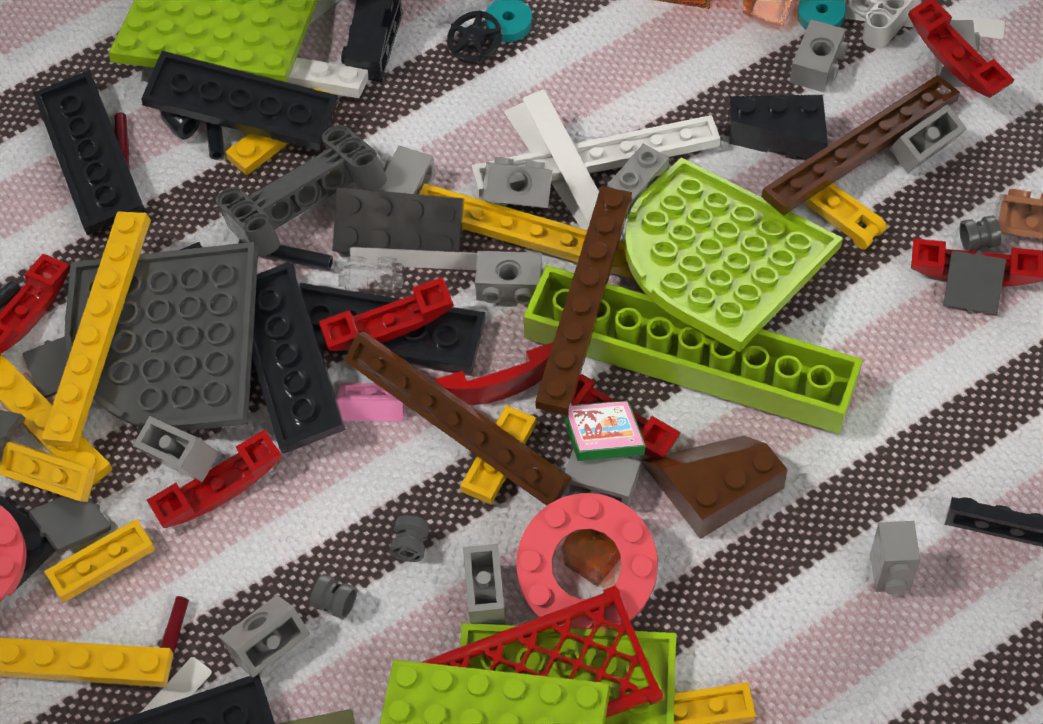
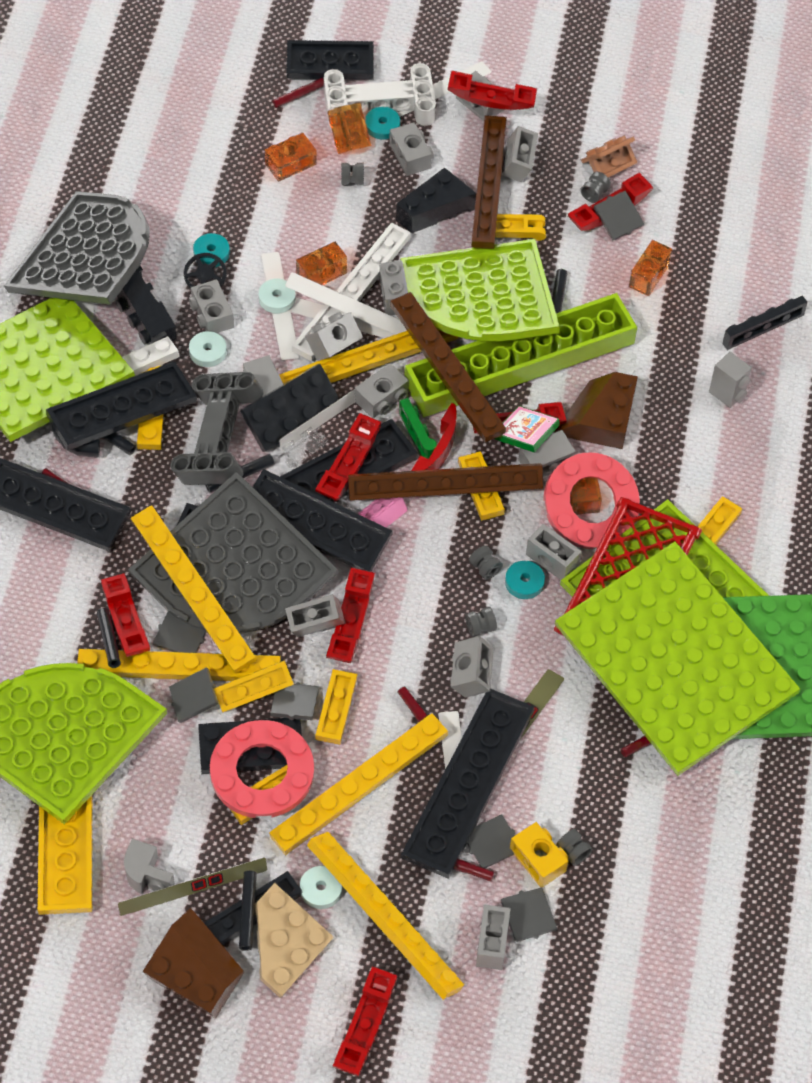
camera: 50 degrees left, 0 degrees up
(395, 100) = (204, 357): none -> light aqua piece
(433, 606) = (526, 570): none -> teal piece
(440, 73) = (212, 307): none -> light grey brick
(498, 343) = (416, 430): none -> green plate
(506, 110) = (276, 304): none -> light aqua piece
(514, 120) = (282, 321): none -> white sticker
(590, 108) = (323, 264): none -> clear orange brick
(728, 39) = (357, 173): none -> dark grey wheel
(815, 315) = (559, 289): none -> black piece
(945, 364) = (650, 268): none -> clear orange brick

